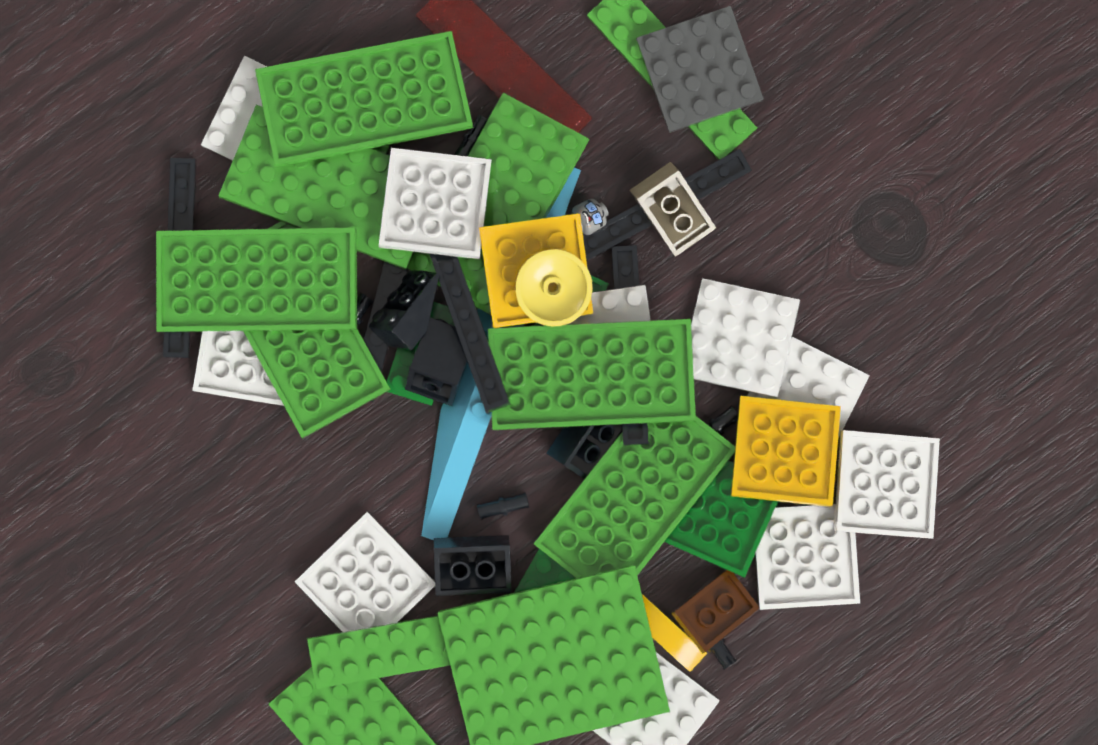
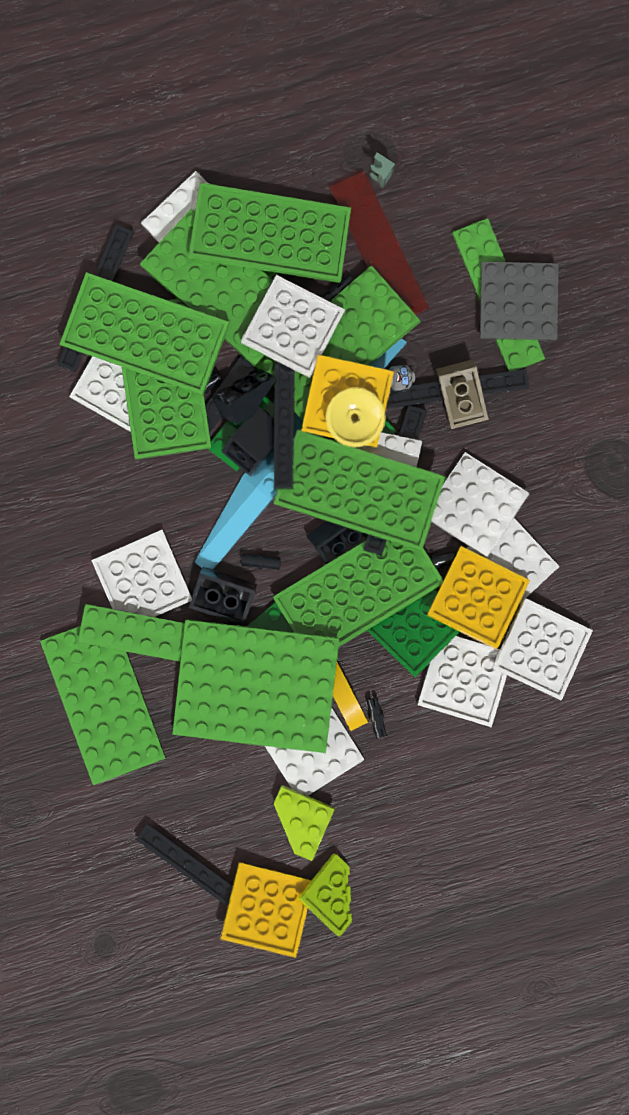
camera: 20 degrees right, 0 degrees up
(715, 610) = (385, 693): reddish brown plate -> none

